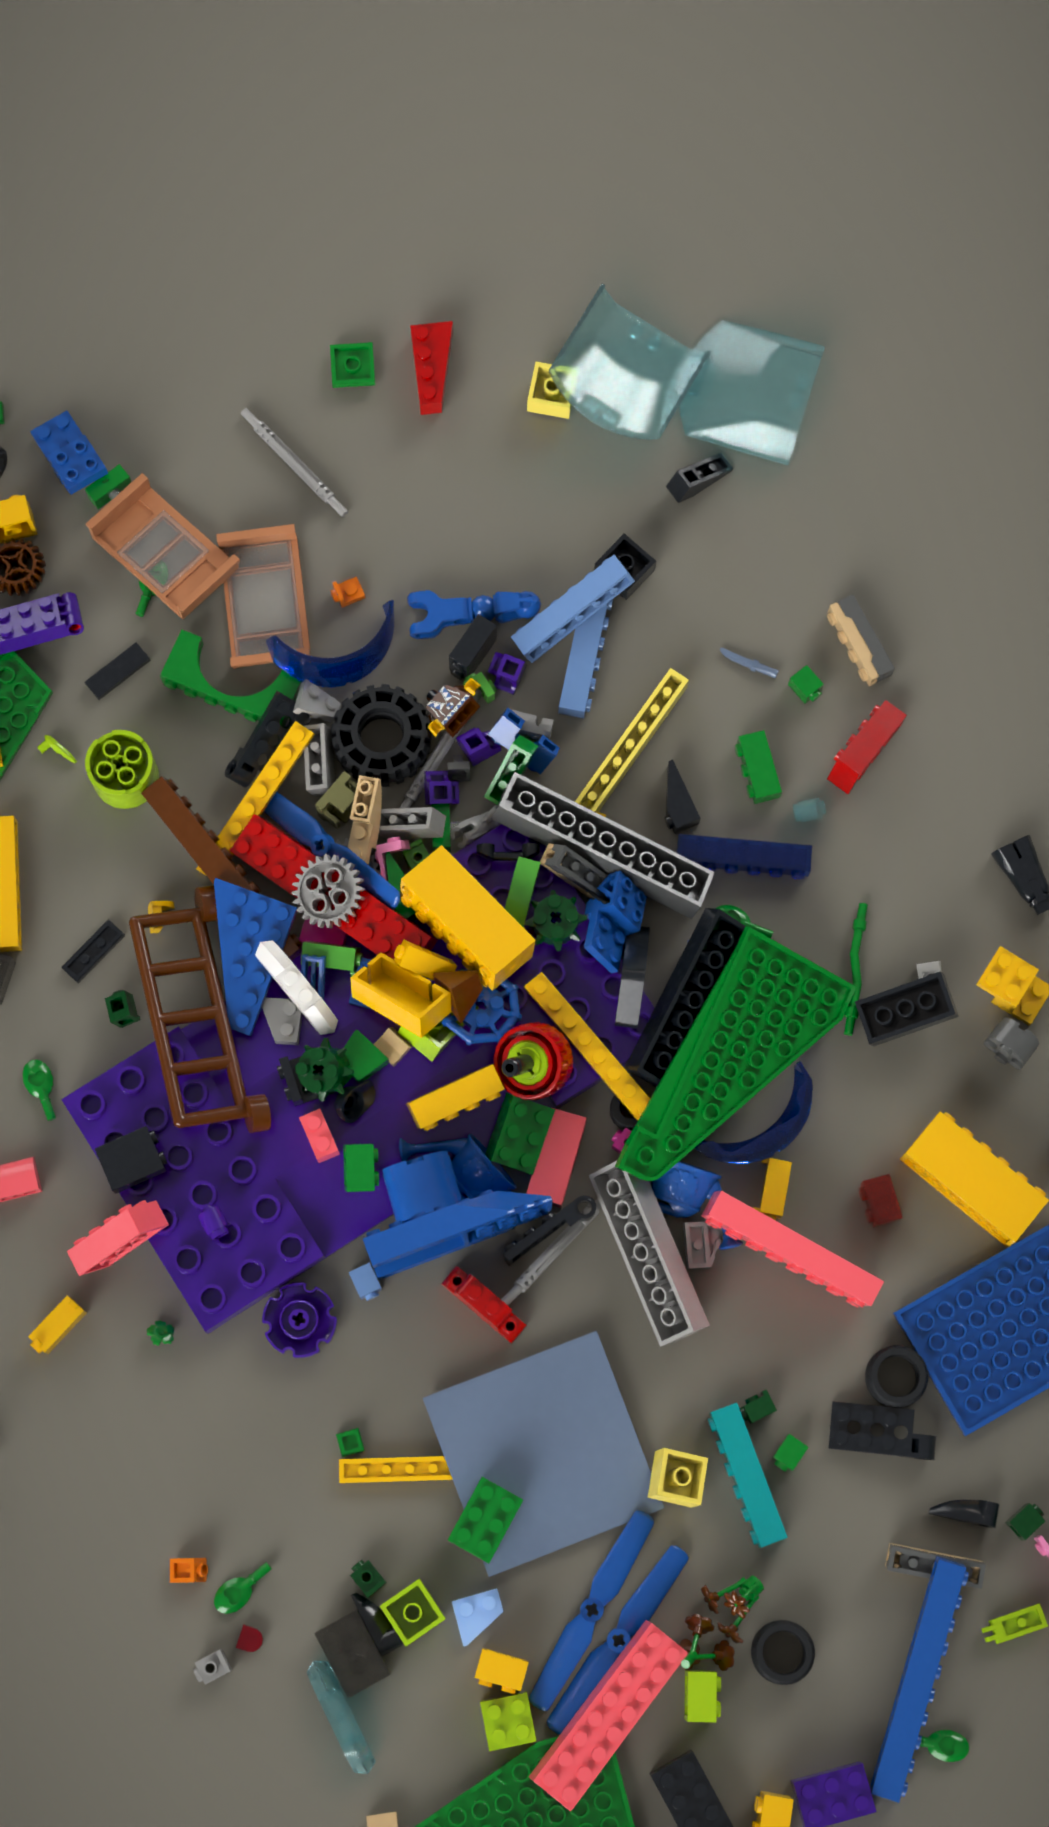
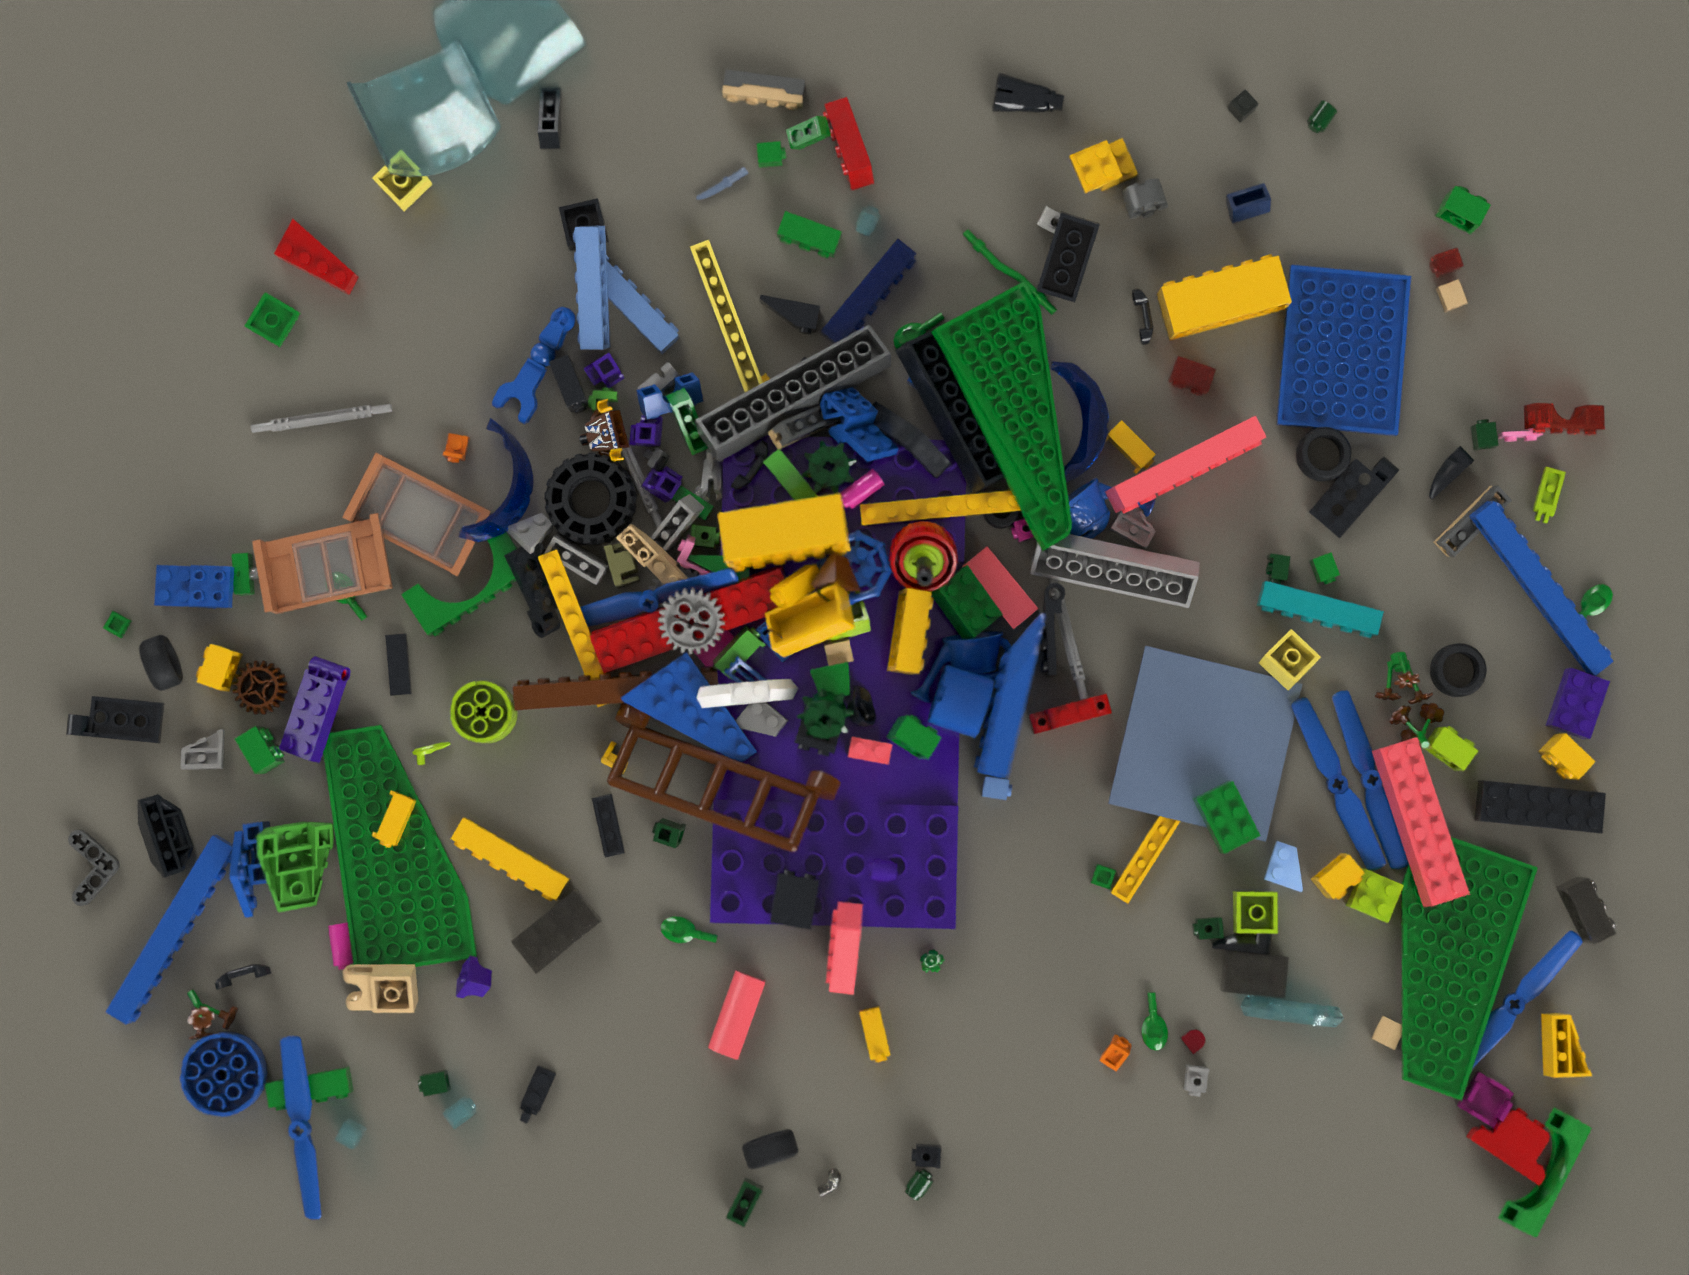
camera: 55 degrees left, 10 degrees up
(306, 1337) = (1007, 860): dark purple piece -> none
(556, 963) = (861, 489): none -> dark pink brick
(849, 703) = (808, 132): none -> green piece
(890, 1132) = (1140, 298): none -> black bar

